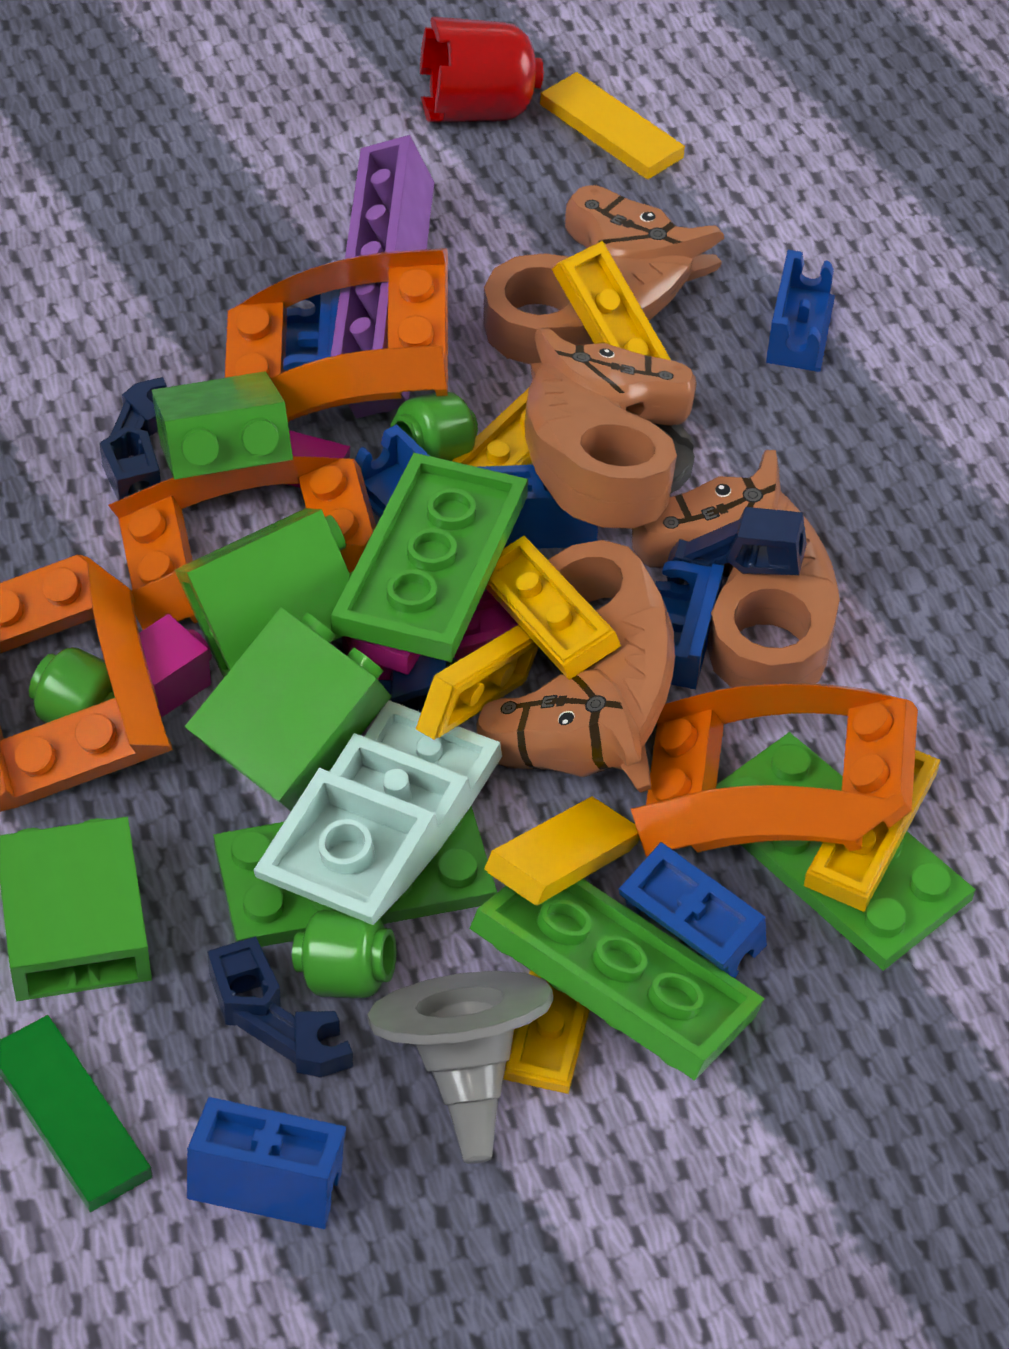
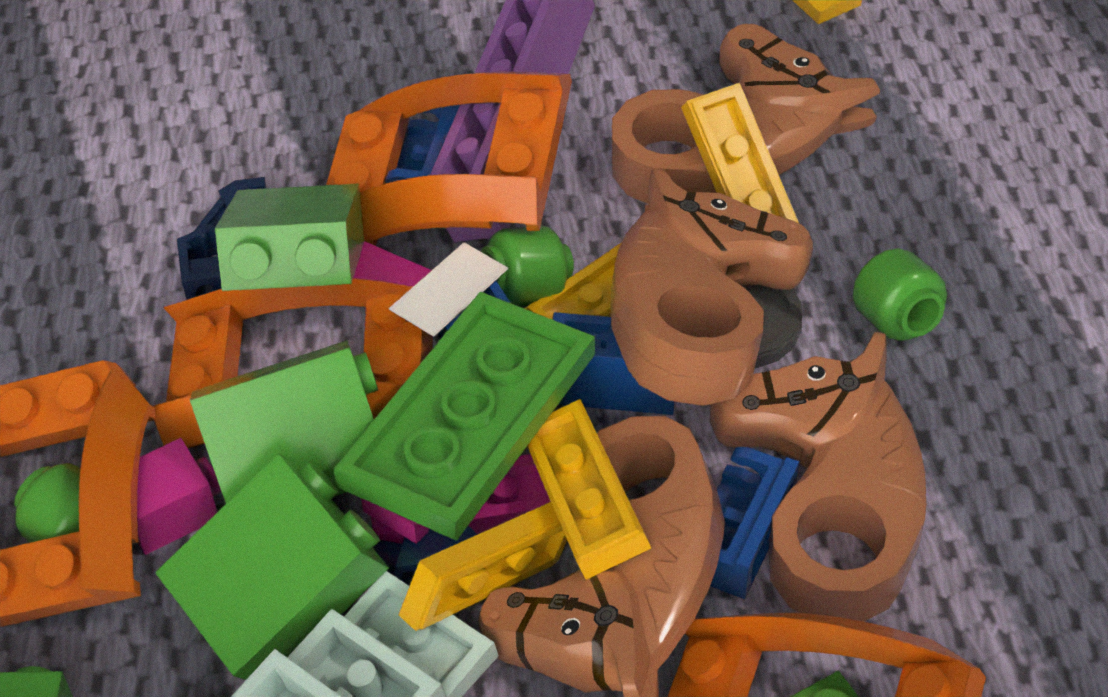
camera: 15 degrees right, 0 degrees up
(378, 455) = (448, 289): none -> white sticker
(755, 544) = (835, 443): dark blue piece -> none
(777, 417) = (900, 294): none -> bright green head
(801, 316) = (949, 184): blue hinge -> none

